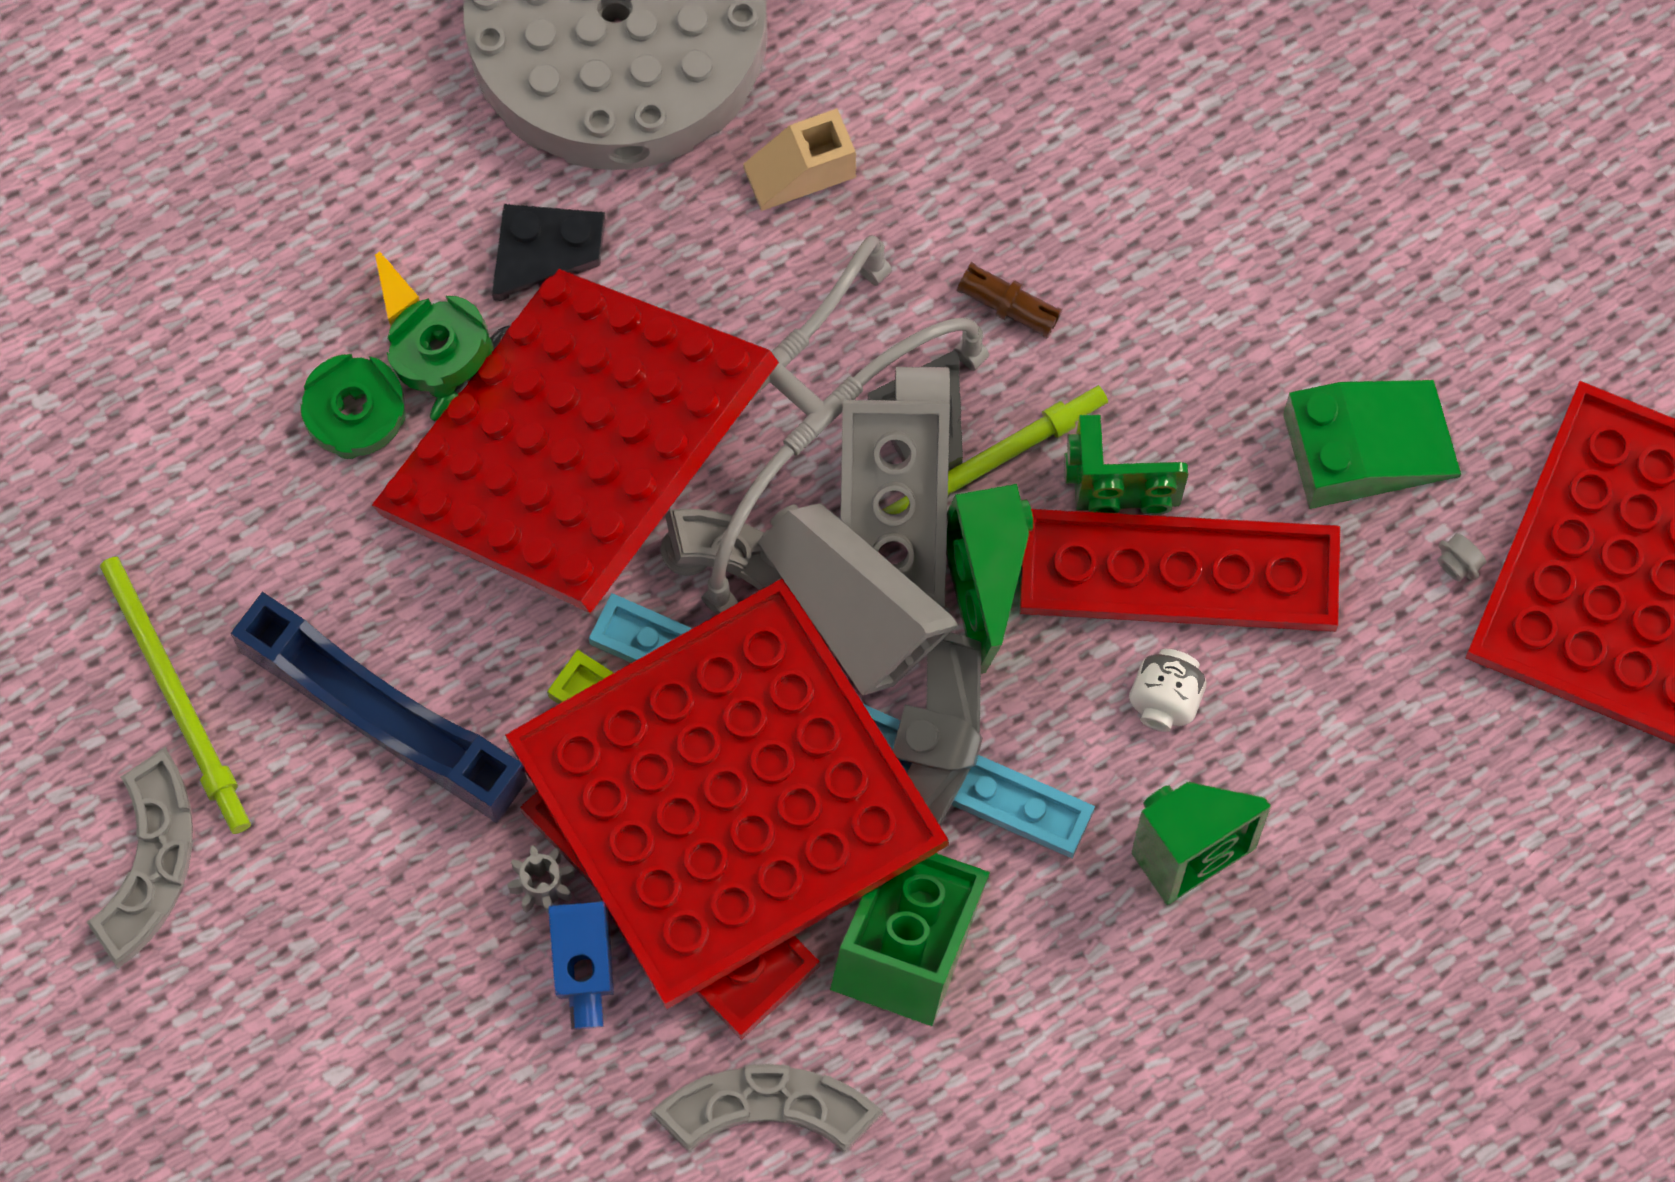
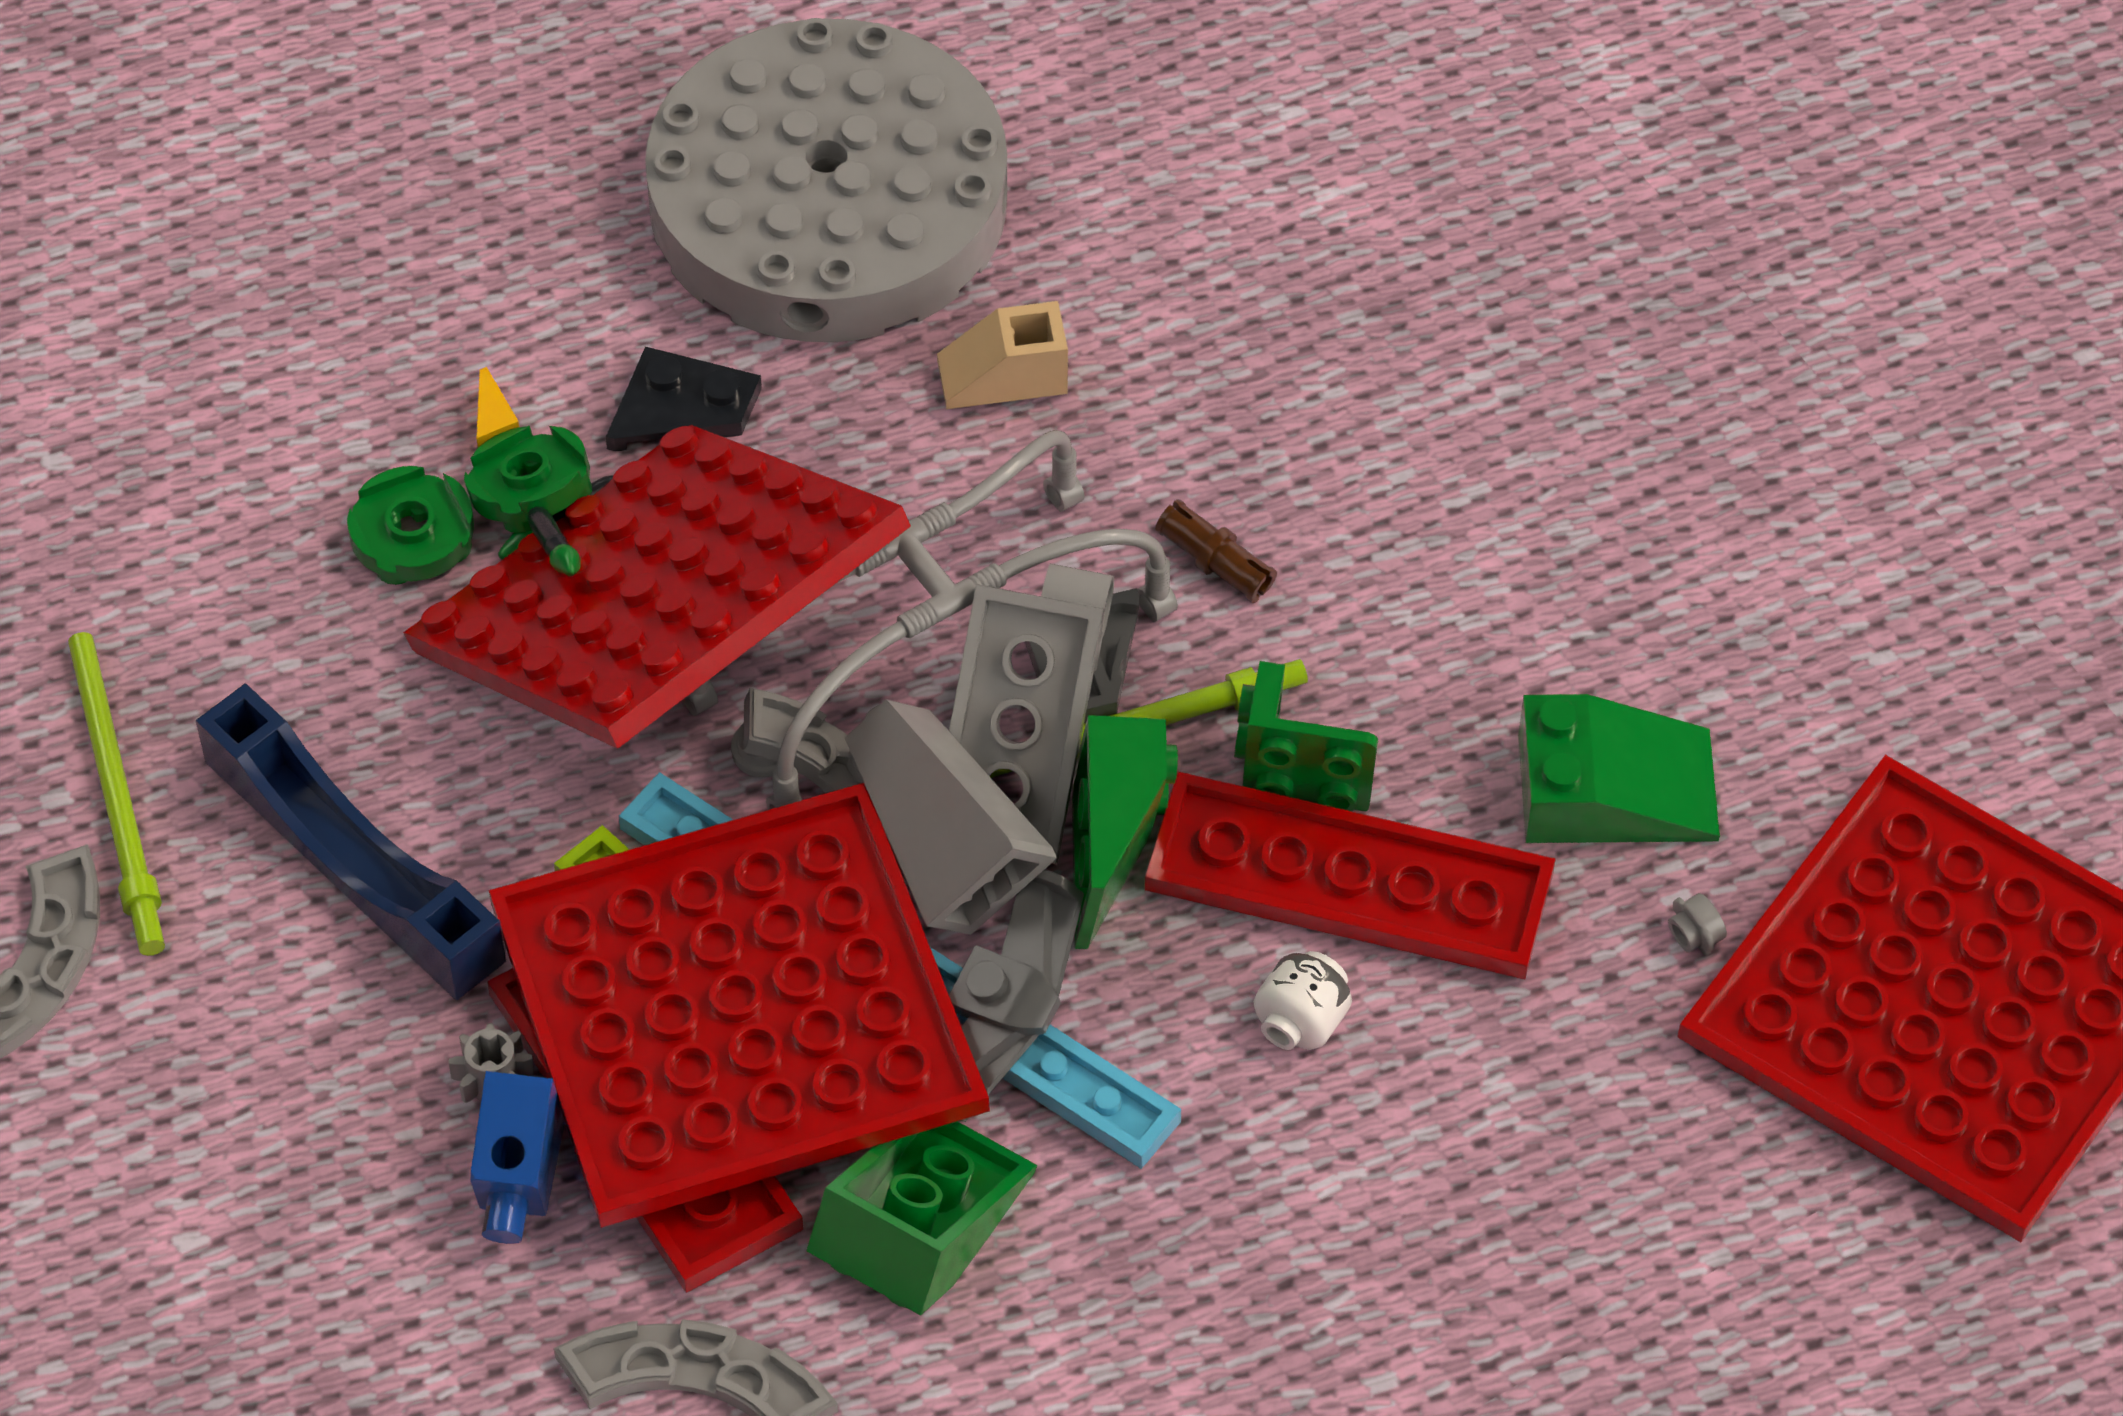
camera: 10 degrees right, 15 degrees down
(493, 427) = (554, 543): none -> piece
(1195, 835) = (1293, 1147): green slope -> none

